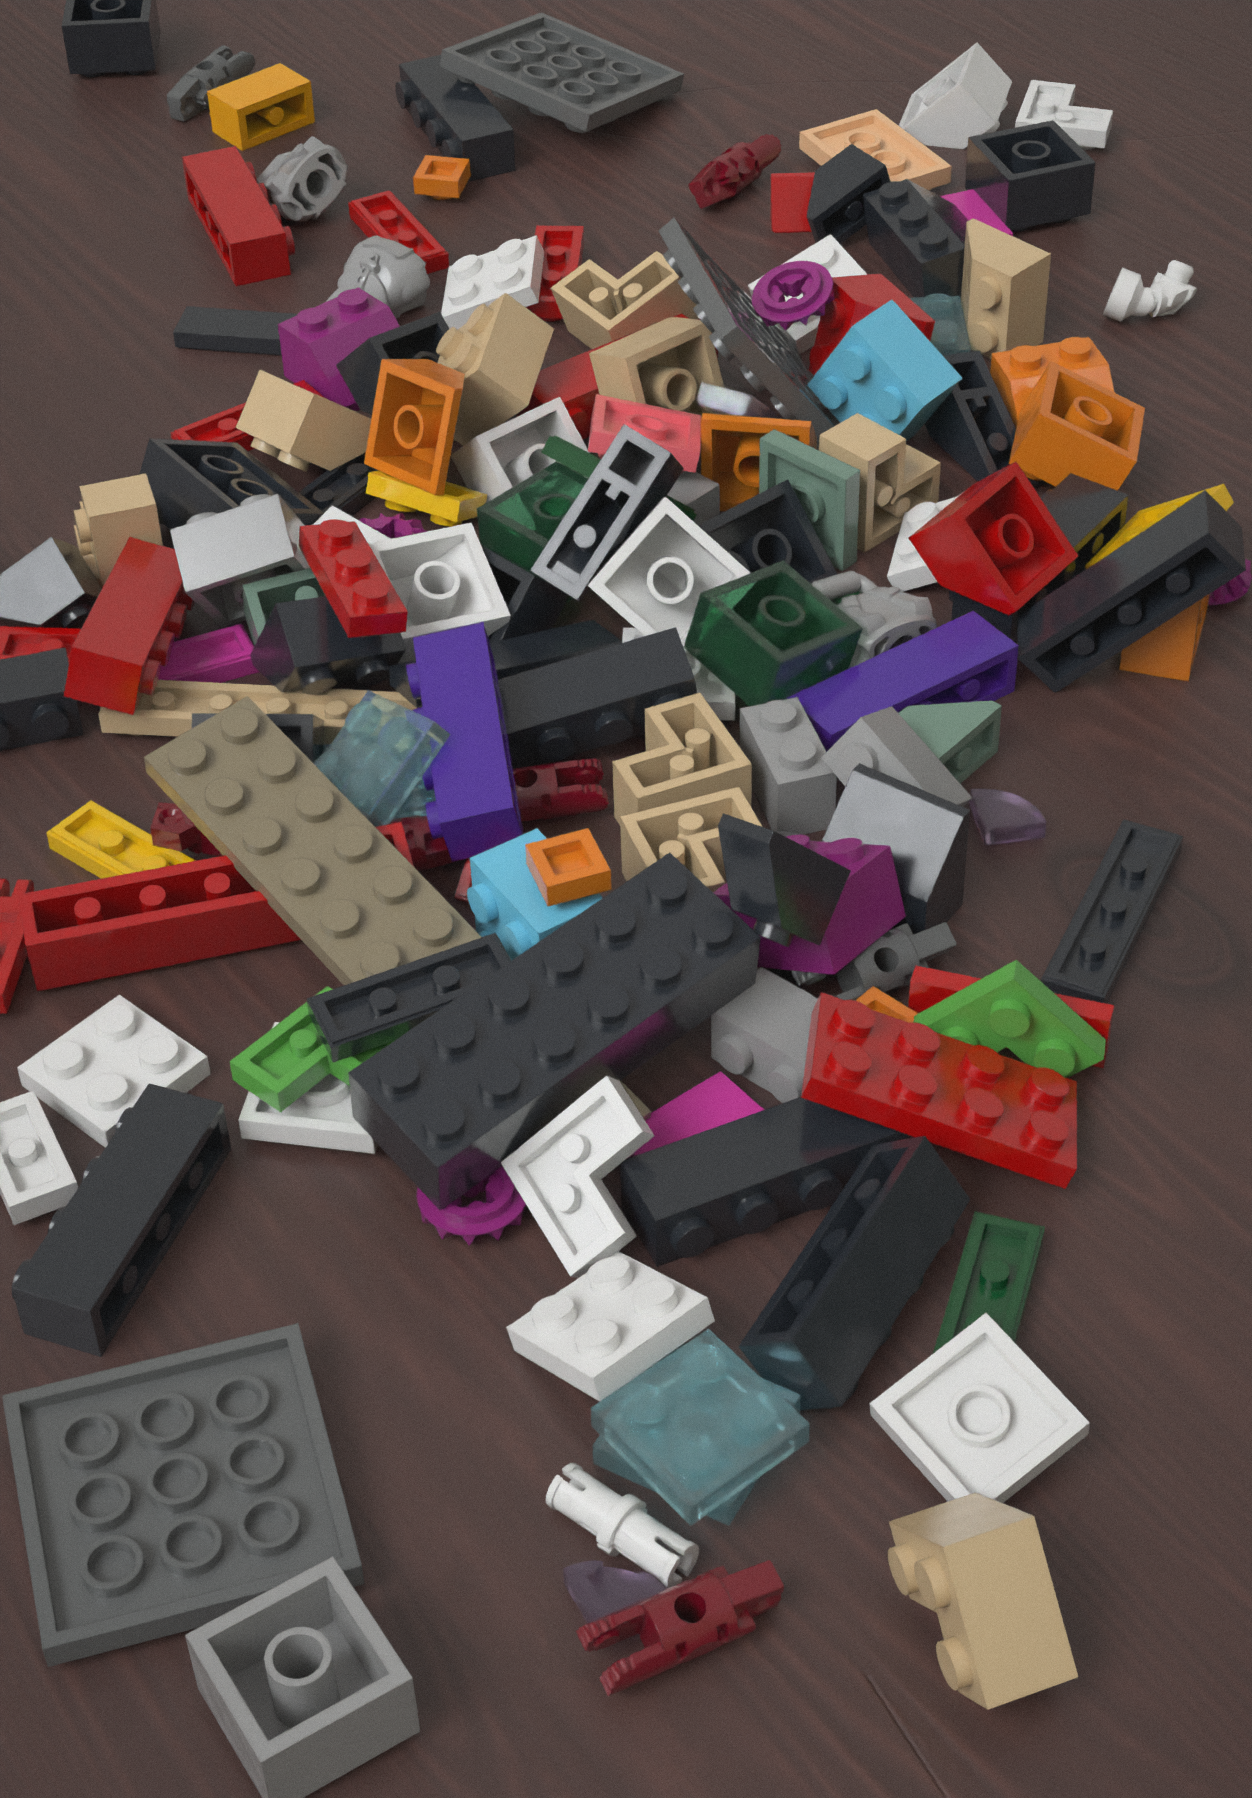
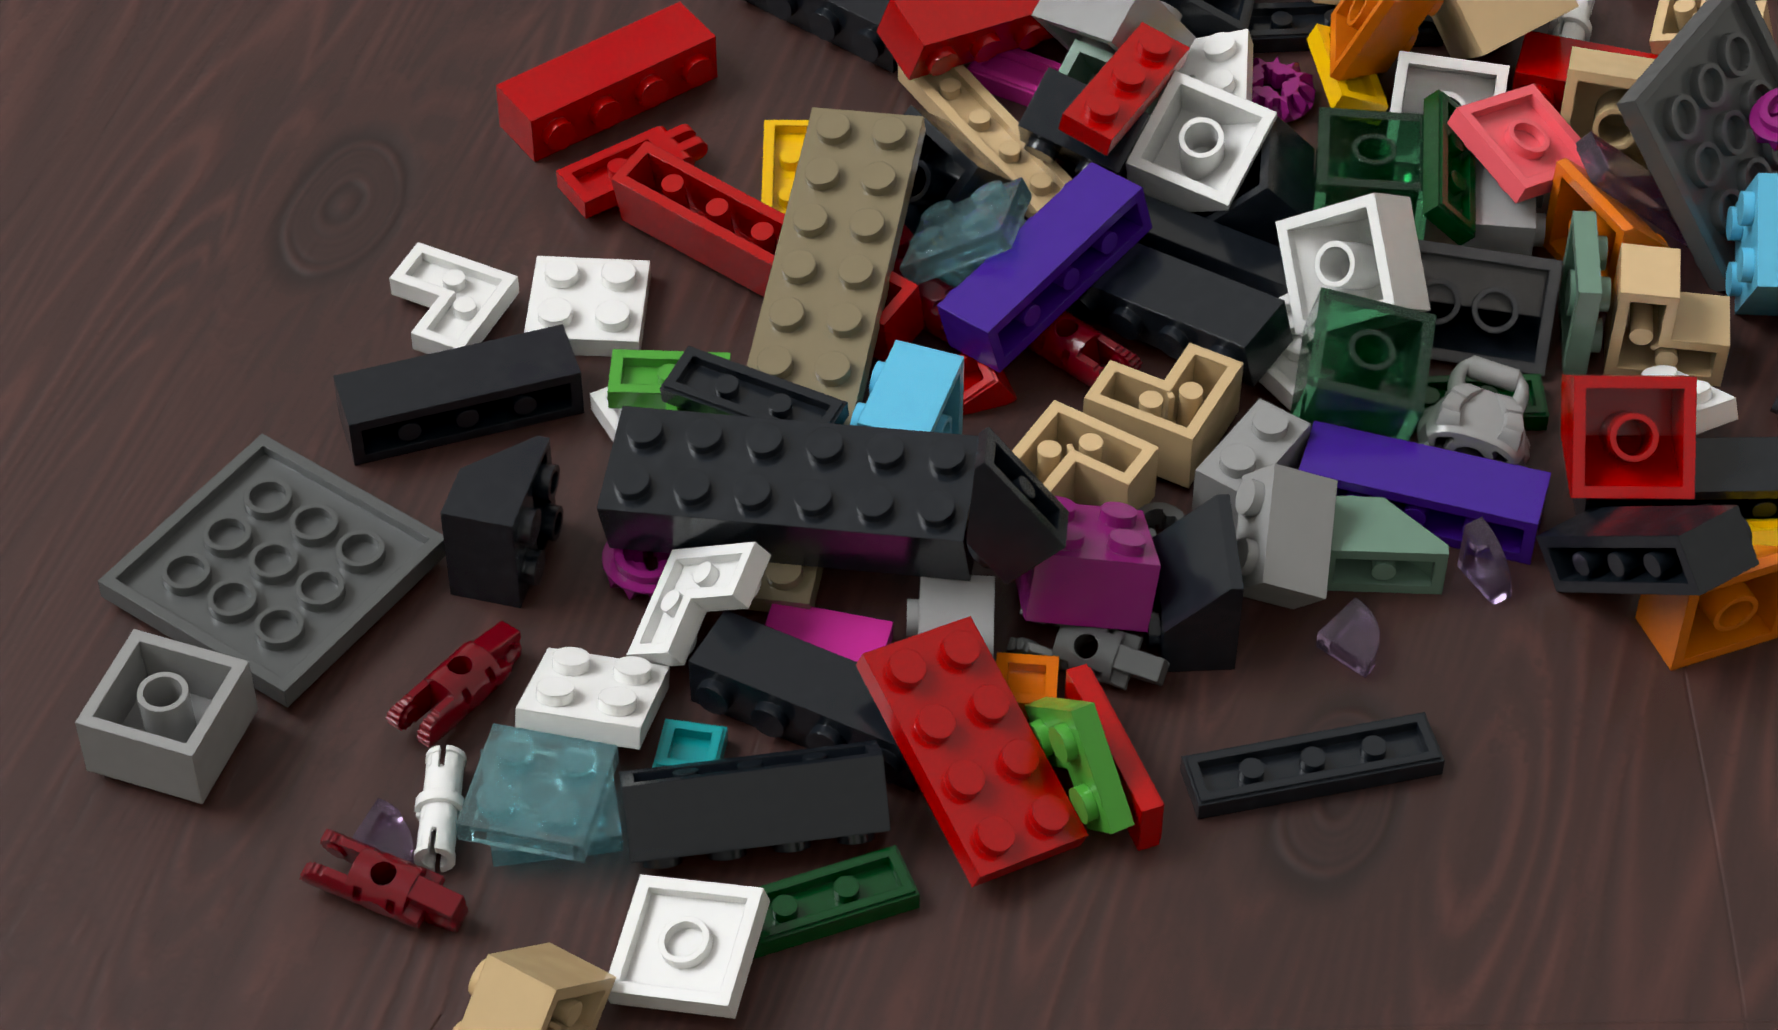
camera: 50 degrees right, 5 degrees up
(352, 1265) = (501, 523): none -> black slope
(486, 1421) = (458, 684): none -> dark red hinge
(568, 867) = (921, 393): orange plate -> none
(607, 511) = (1401, 160): slope -> none
(734, 1296) = (690, 743): none -> teal tile
(1017, 703) = (1484, 561): none -> clear purple tile

